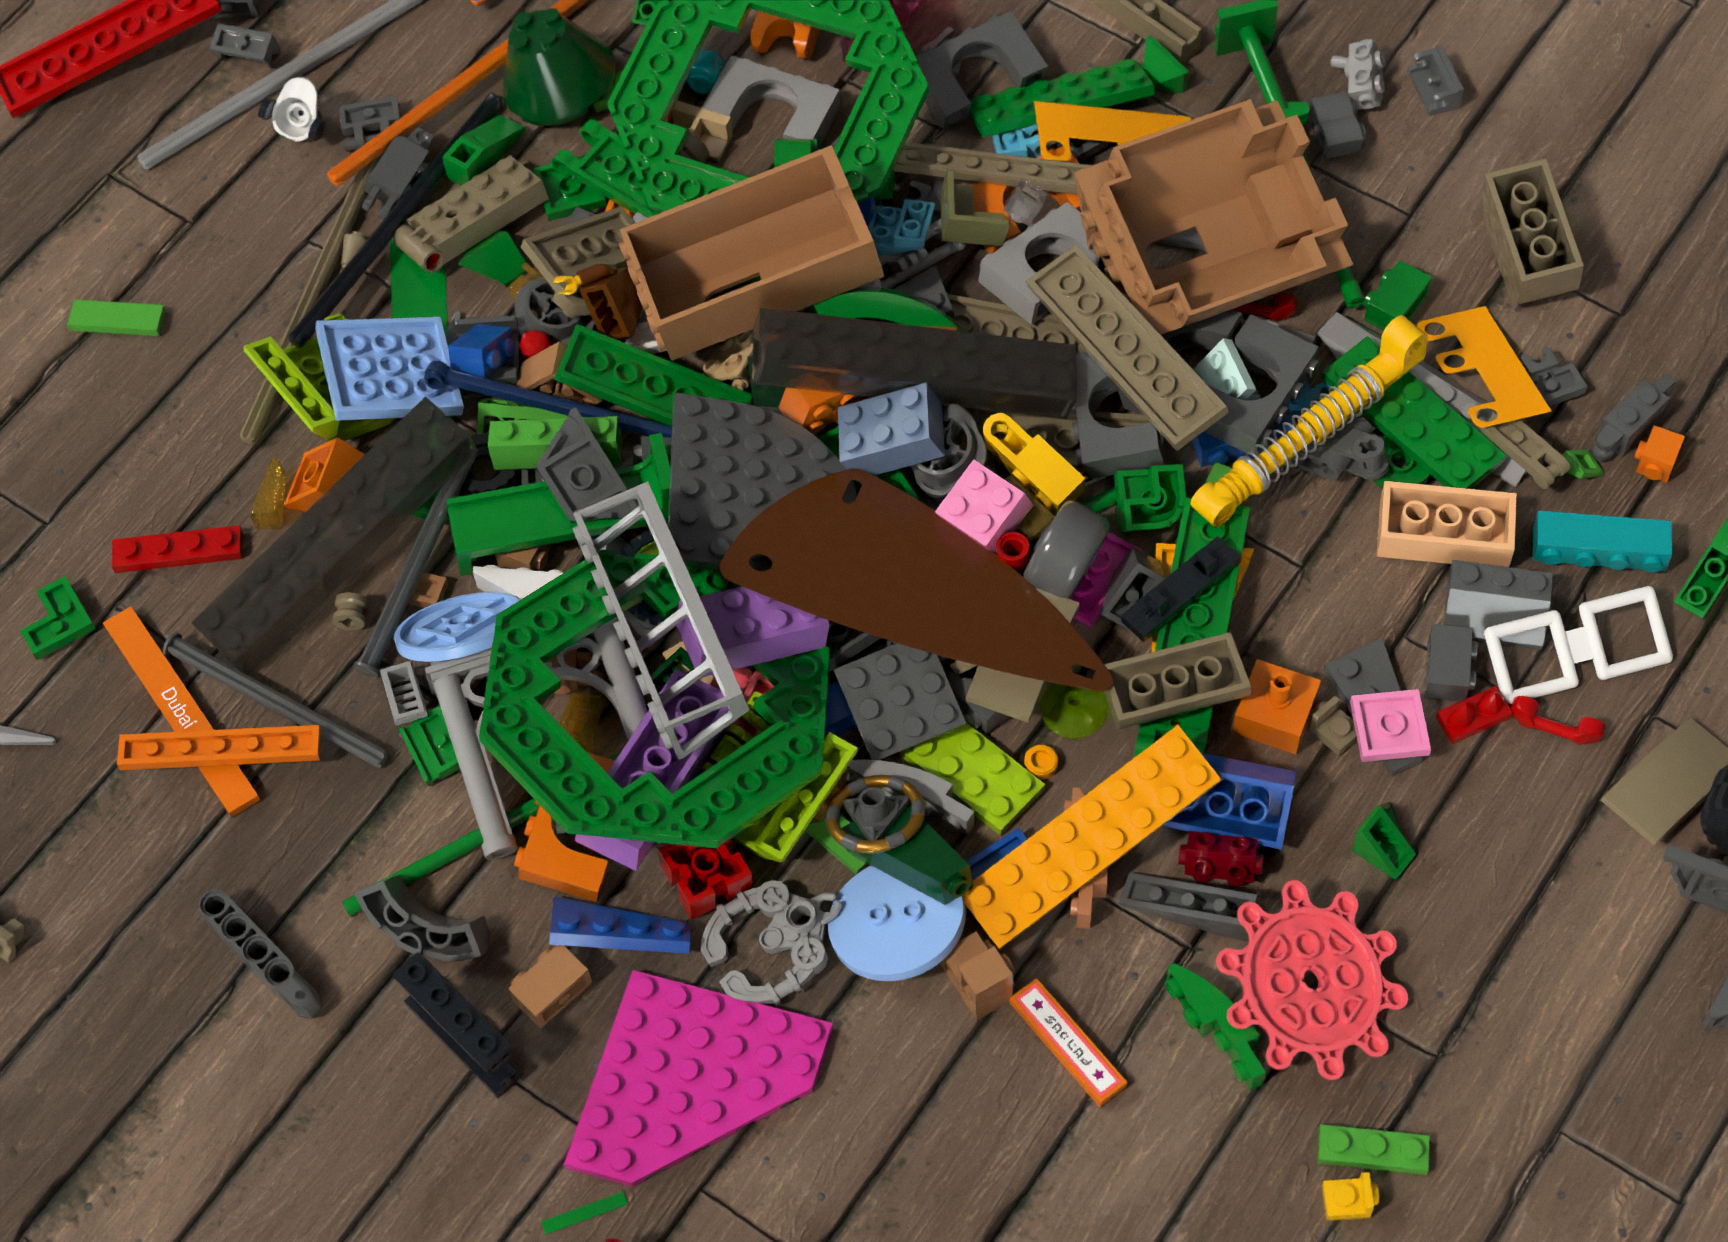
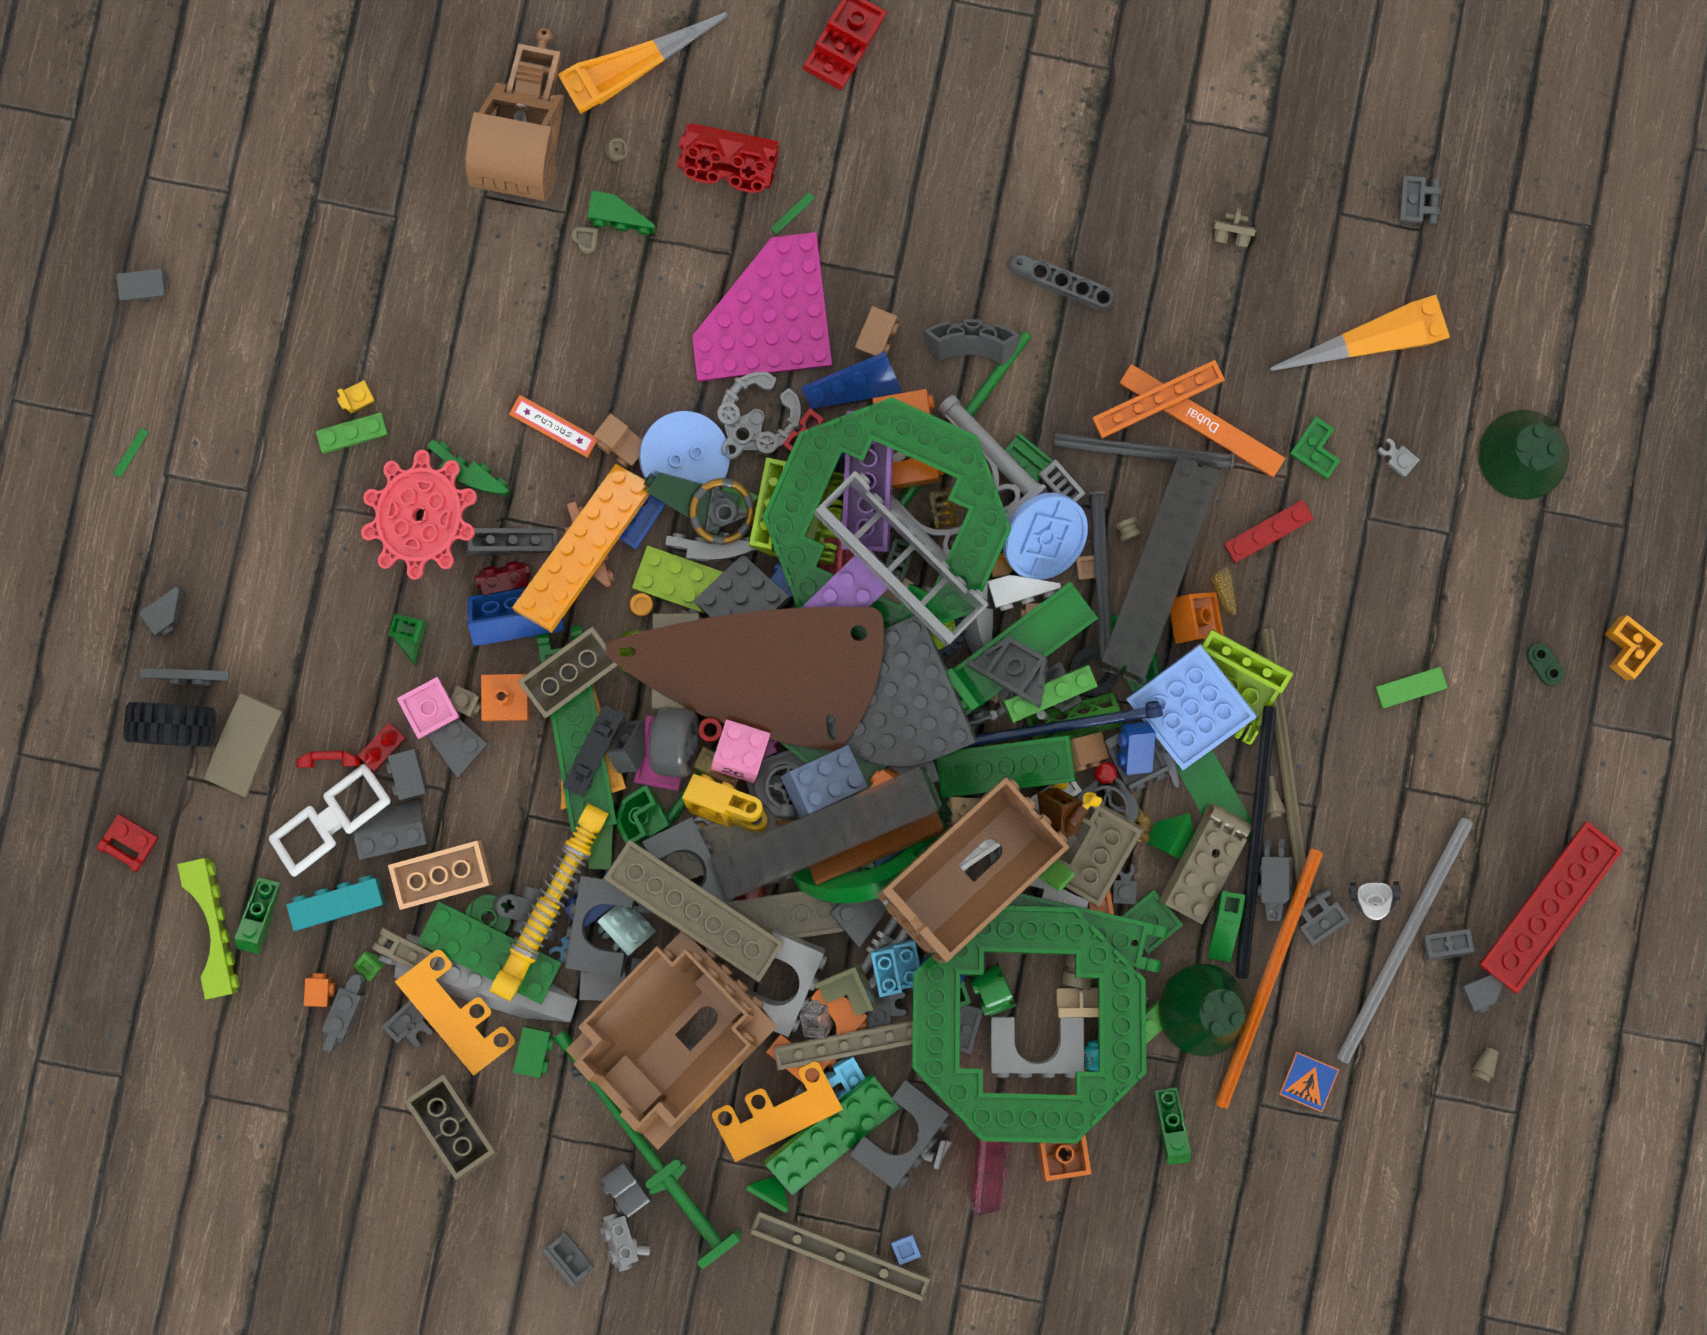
camera: 150 degrees right, 25 degrees up
(458, 1024) = (914, 279): black fence -> none

